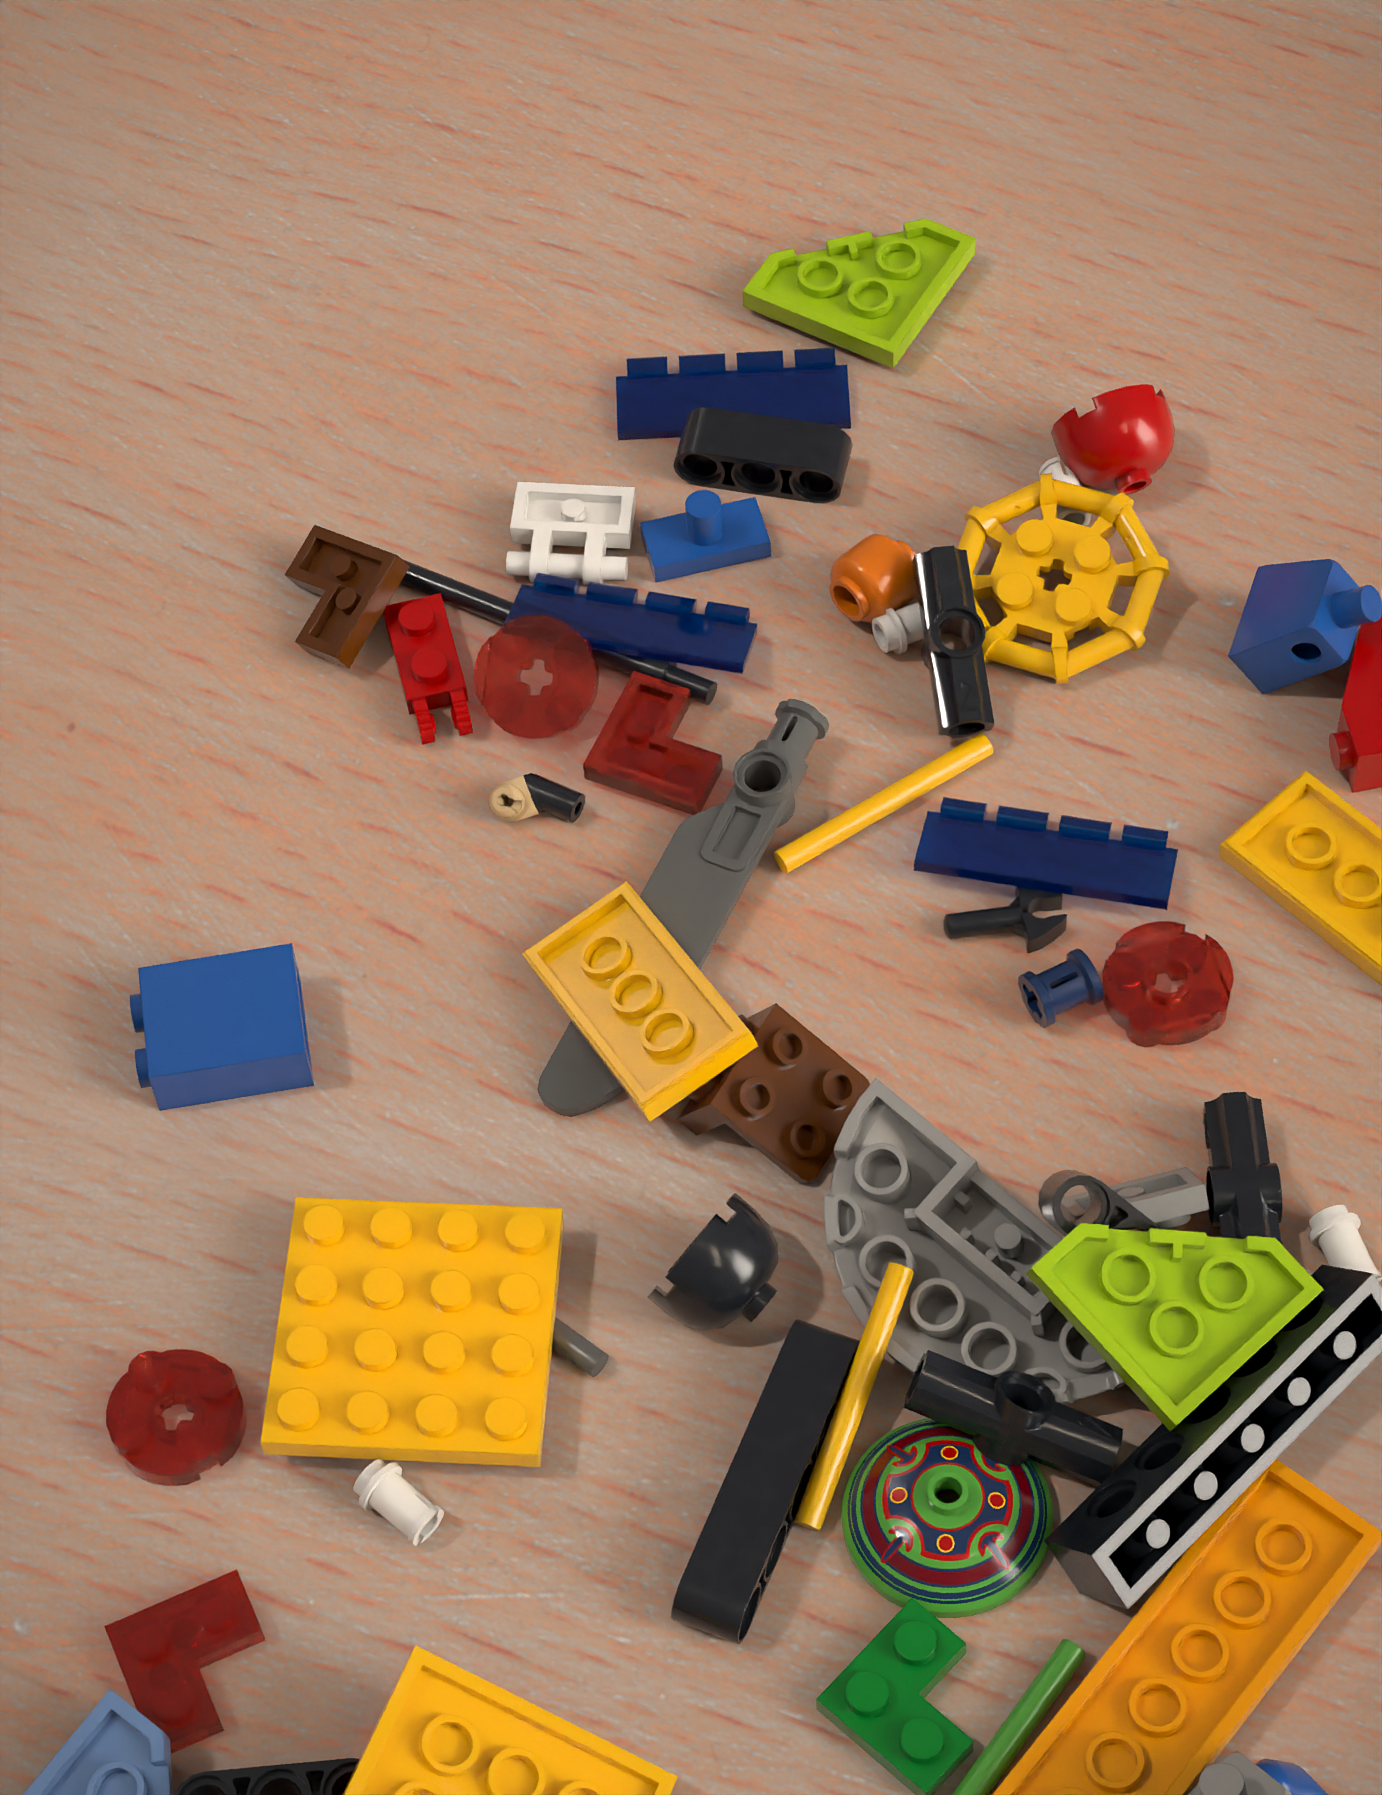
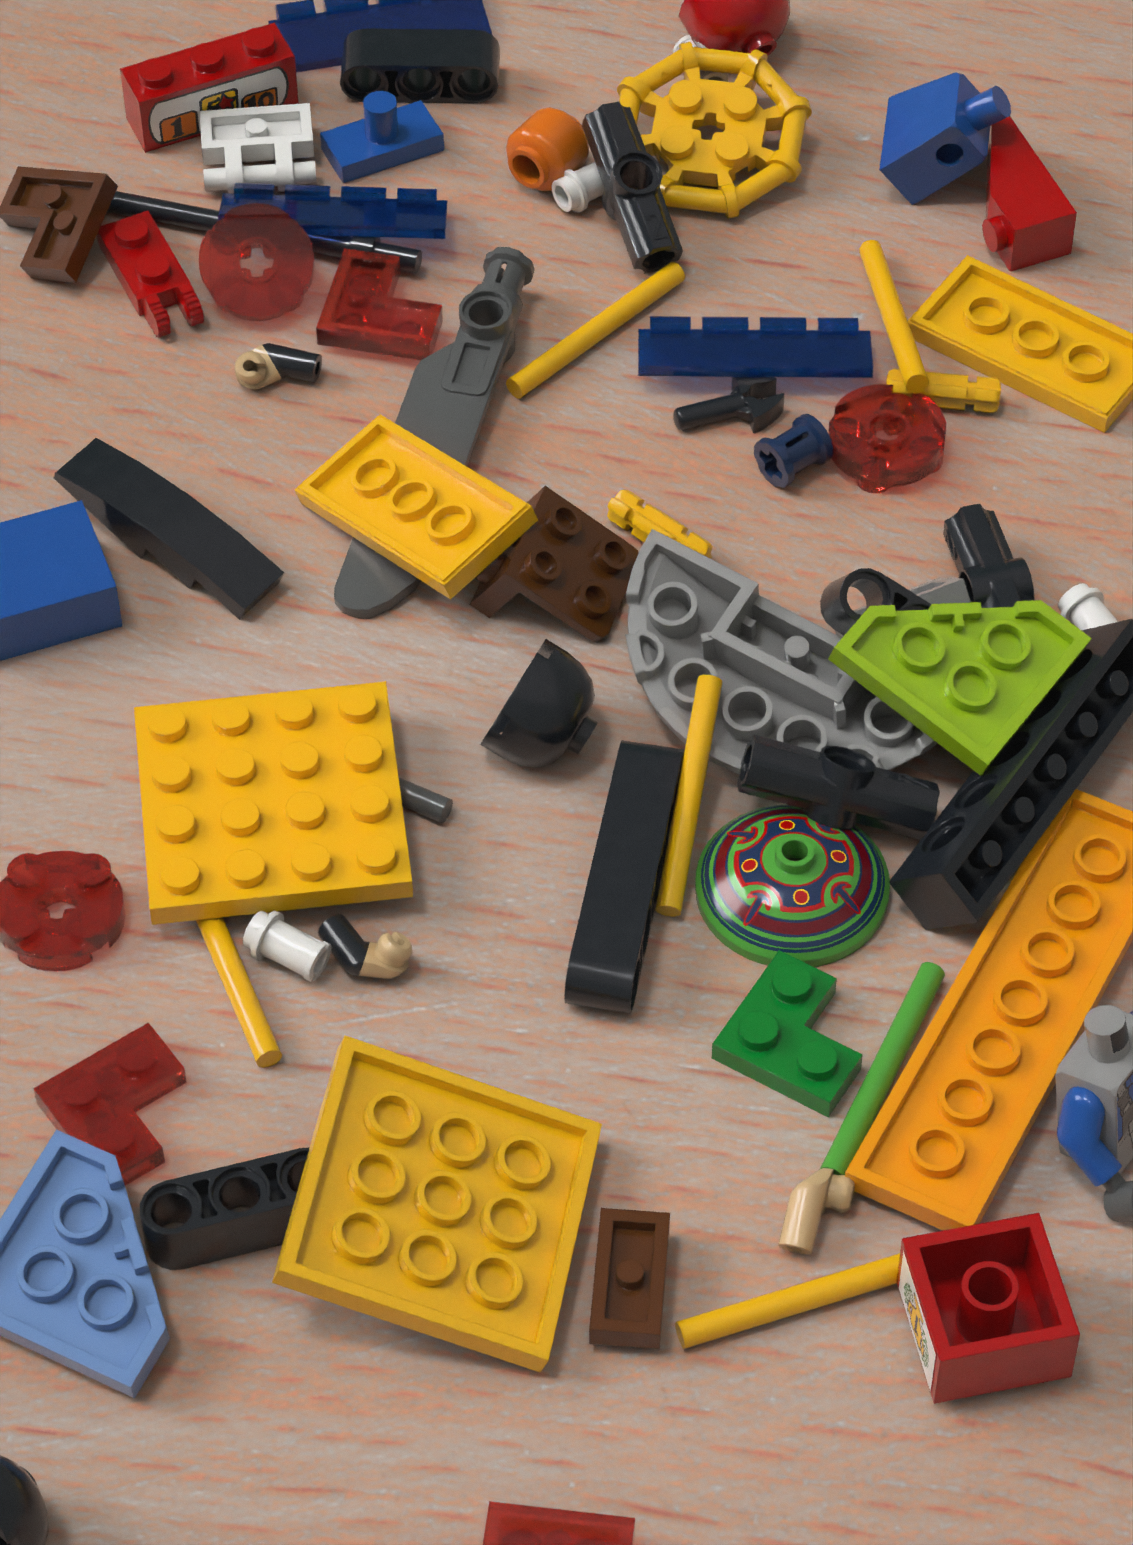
camera: 15 degrees left, 5 degrees down
(340, 1546) = (240, 991): none -> yellow bar
(381, 981) = (169, 524): none -> black slope
(475, 1528) = (364, 958): none -> arm
(551, 443) = (227, 73): none -> red brick
(897, 1062) = (628, 512): none -> yellow axle
(1206, 839) = (894, 317): none -> yellow bar
(1246, 934) = (954, 390): none -> yellow axle

